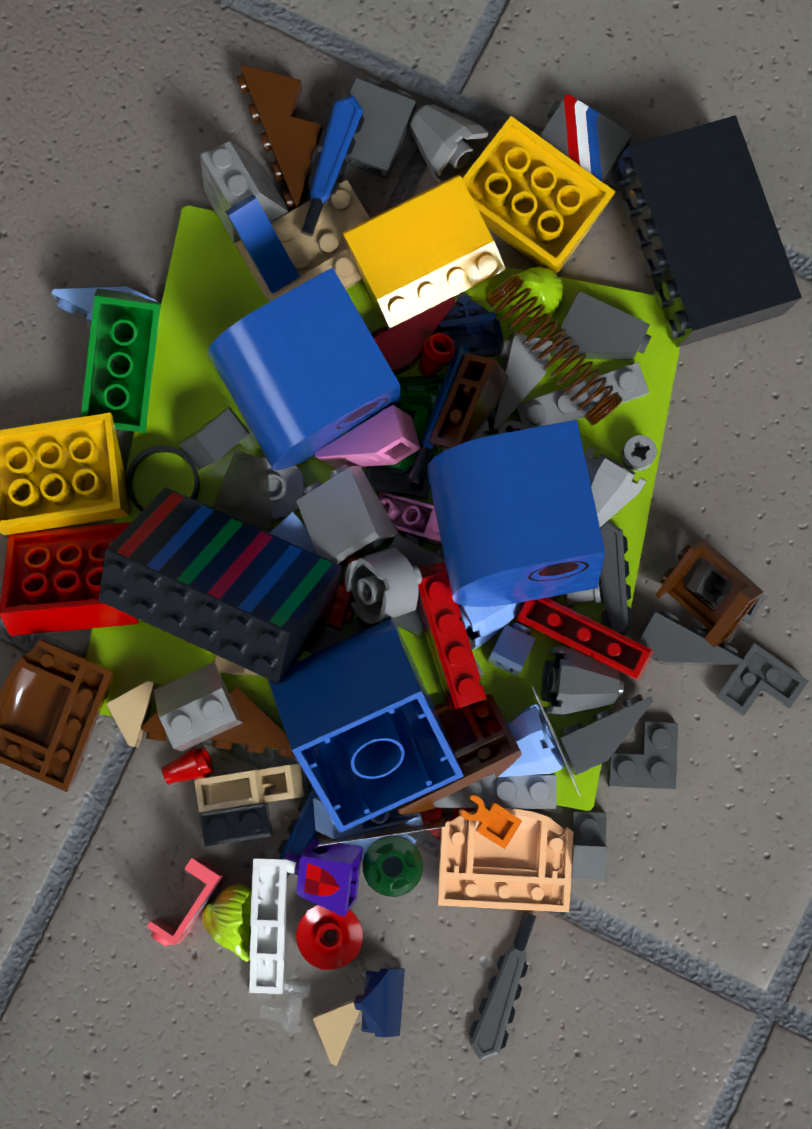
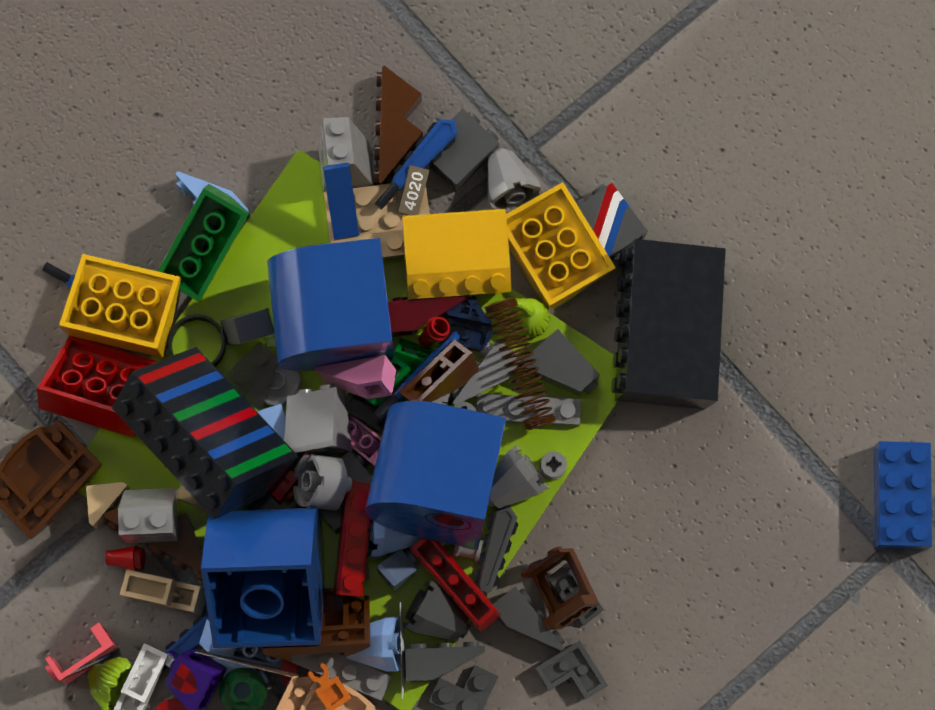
camera: 15 degrees right, 5 degrees down
(236, 824) = (143, 614): black brick -> none
(340, 198) = (413, 190): none -> dark tan sticker

